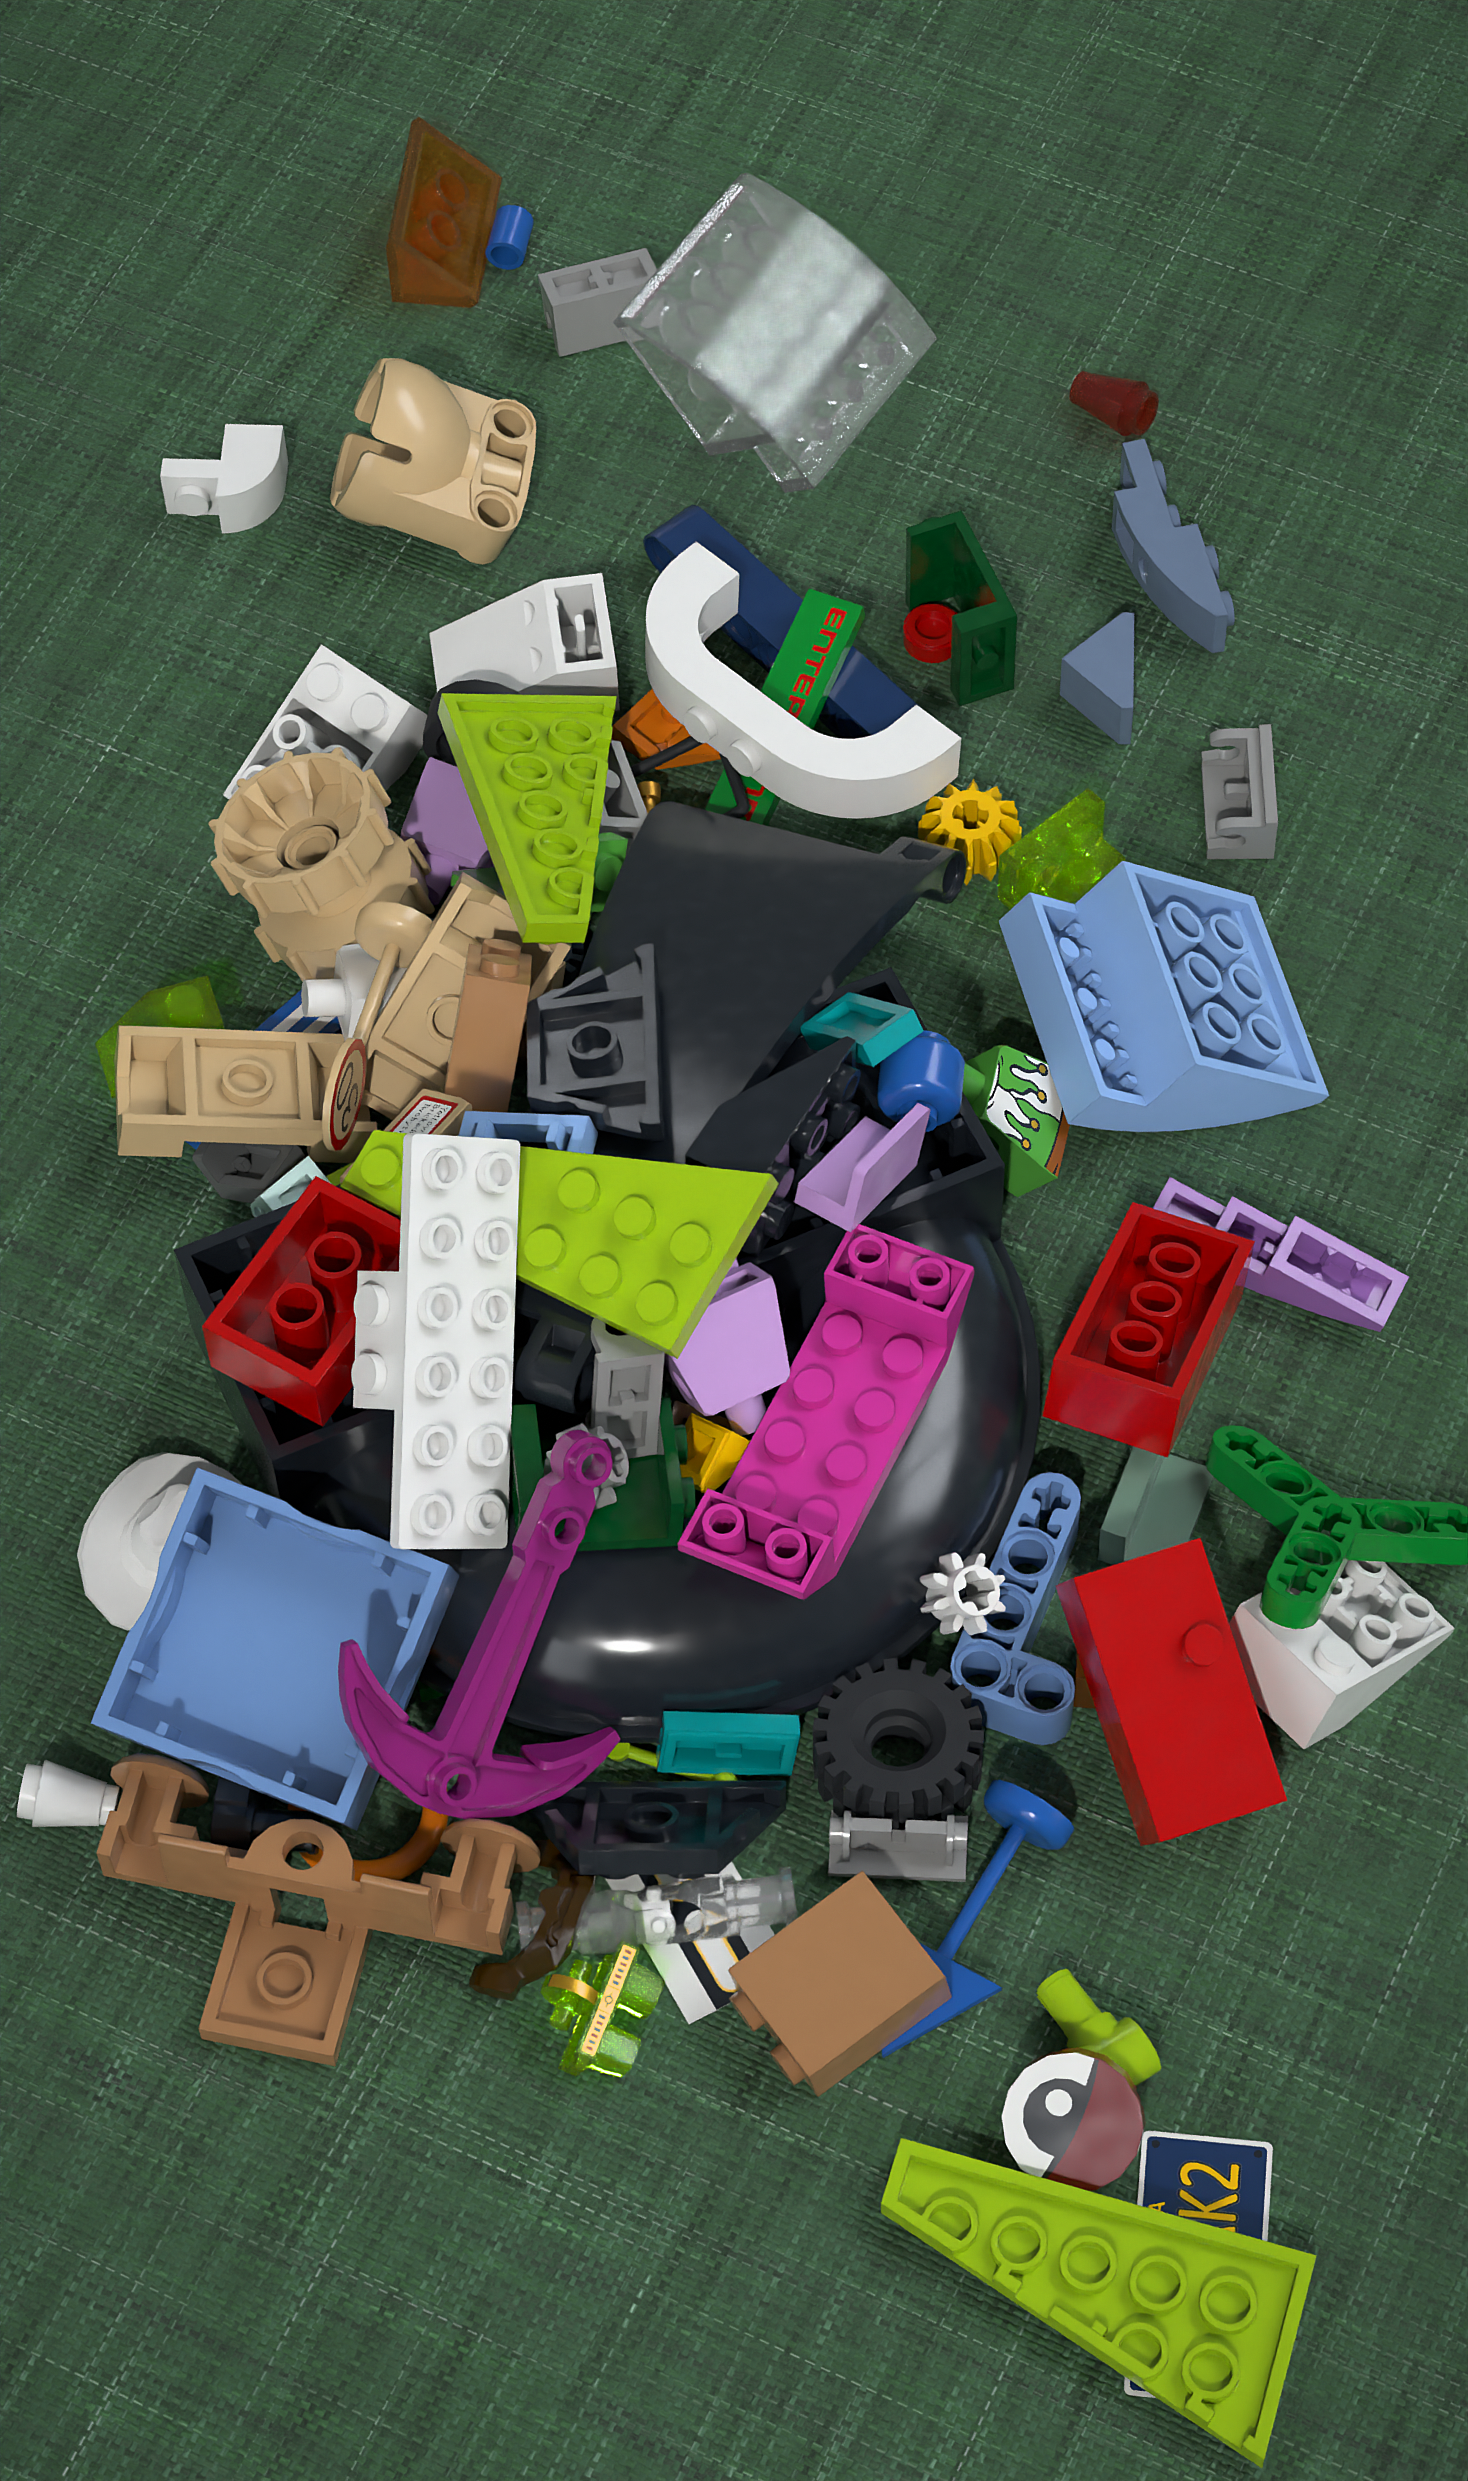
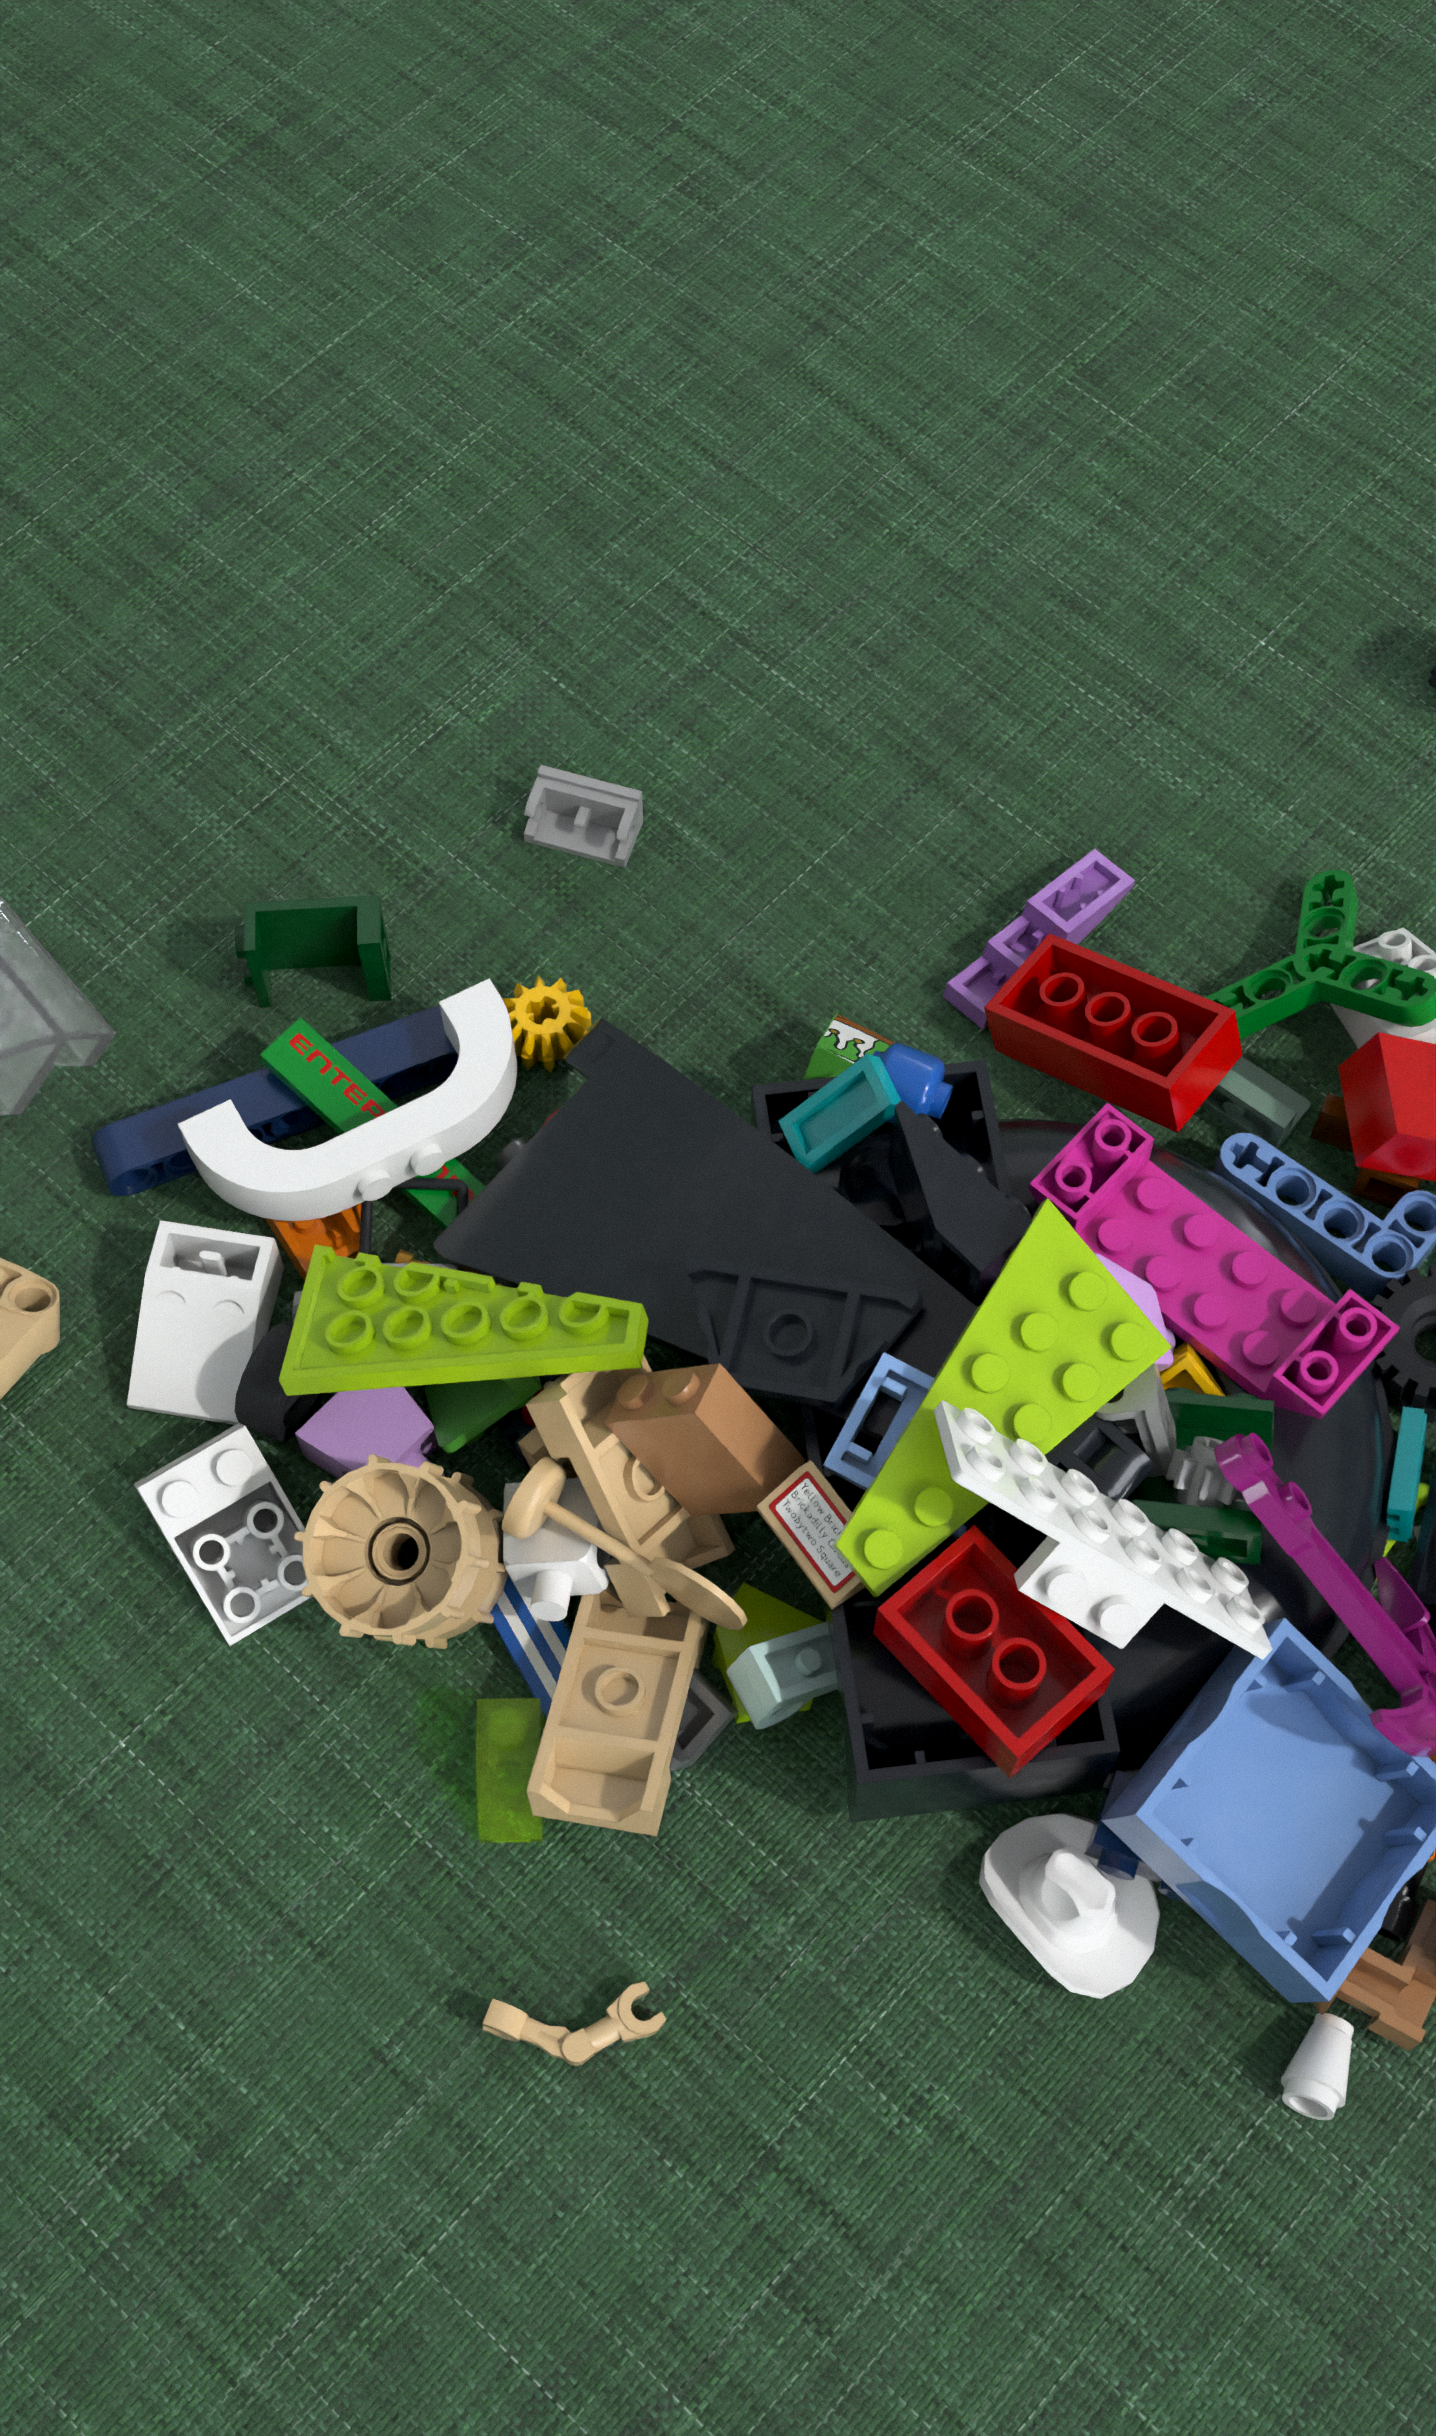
camera: 75 degrees left, 5 degrees up
(863, 1169) = (996, 1142): lavender panel -> none
(929, 633) = (309, 994): red tile -> none
(981, 1591) = (1340, 1239): white gear -> none
(1059, 856) = (609, 966): clear neon green bracket -> none
(1100, 678) = (429, 873): sand blue slope -> none
(1118, 402) = (129, 779): clear red cone -> none
(1161, 1005) = (785, 937): light blue slope -> none
(1168, 557) = (327, 793): sand blue slope -> none

